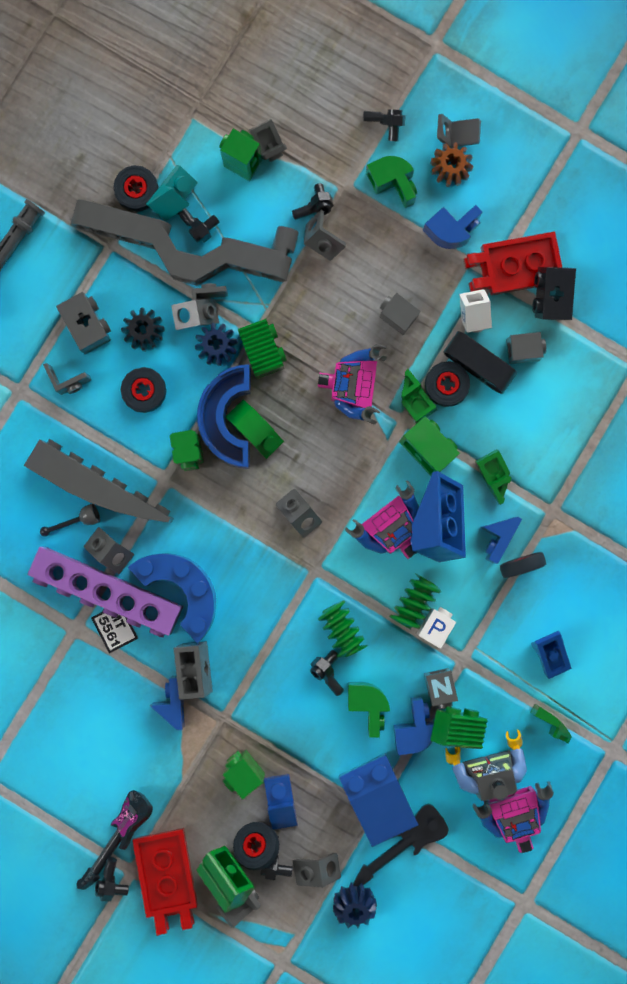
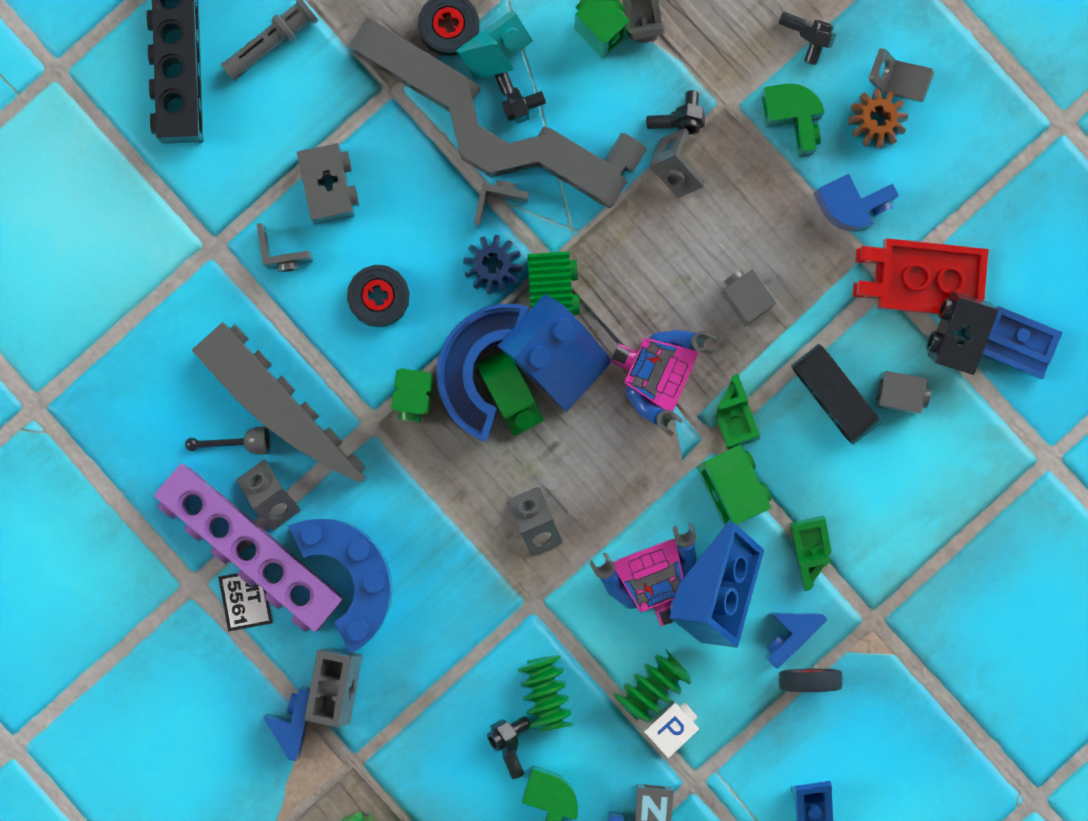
camera: 15 degrees right, 0 degrees up
(152, 328) = (413, 220): black gear -> none
(200, 310) = (486, 216): dark grey bracket -> none
(277, 390) = (556, 351): none -> blue slope
(437, 392) = (800, 402): black bush -> none
(475, 311) = (850, 324): white brick -> none
(598, 289) = (1021, 343): none -> blue plate

